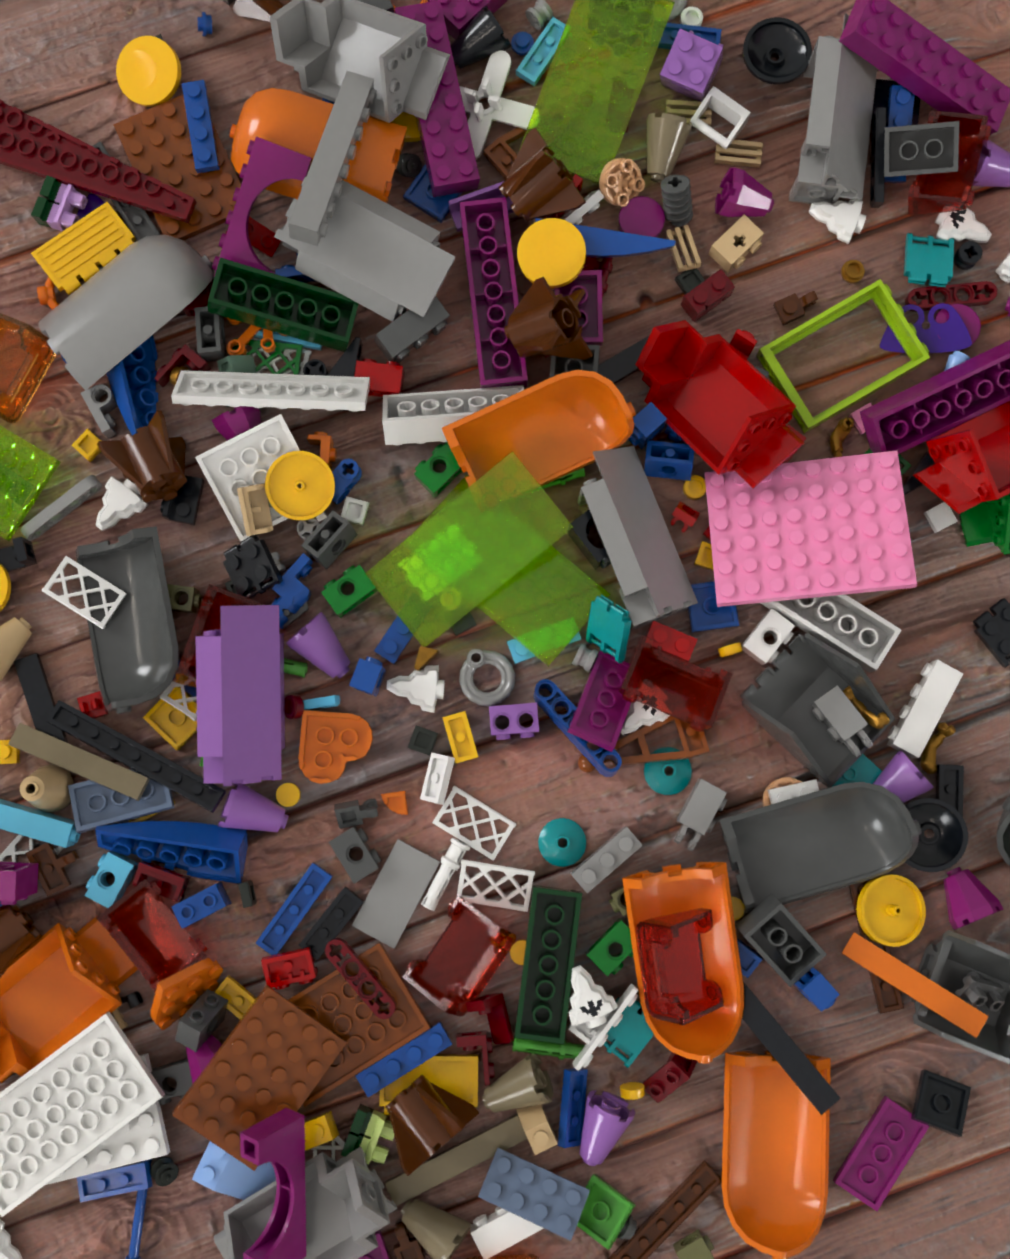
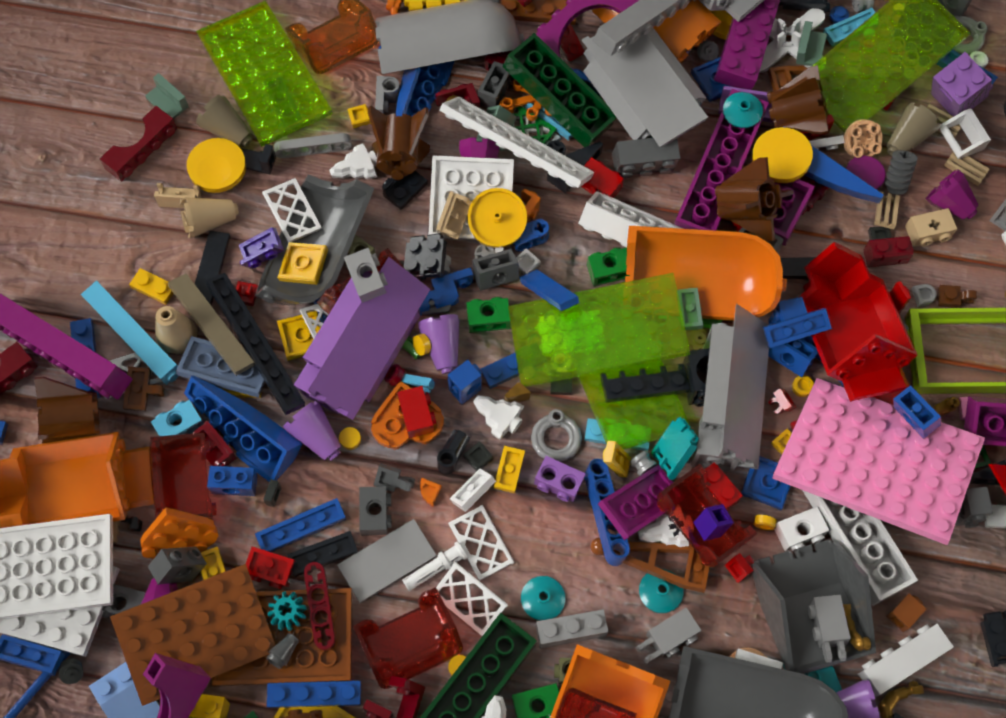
camera: 25 degrees right, 15 degrees down
(78, 652) = (261, 248): none -> dark purple bracket
(131, 643) = (303, 263): none -> yellow tile
(195, 638) = (366, 287): none -> light grey brick
(303, 662) = (421, 344): none -> yellow tile
(326, 994) = (287, 619): none -> teal gear
(338, 735) = (416, 412): none -> red brick
(352, 1041) = (282, 652): none -> dark grey cone
(395, 749) = (452, 450): none -> black piece
(397, 534) = (549, 290): none -> blue tile
(483, 231) = (740, 116): none -> teal dish
(514, 102) = (810, 45): none -> sand green panel
(545, 578) = (645, 384): none -> black hinge
(547, 475) = (690, 308): none -> sand green plate
(558, 670) = (616, 458): none -> yellow plate
(563, 492) = (694, 341): none -> plant
(663, 438) = (797, 327): none -> blue plate
(685, 684) = (713, 522): none -> dark purple brick
(731, 708) = (740, 567): none -> red tile
(764, 321) = (923, 294): none -> light grey tile
(822, 463) = (917, 412): none -> blue brick
(903, 661) = (906, 612): none -> dark orange brick
(921, 524) = (975, 507): none -> dark grey brick

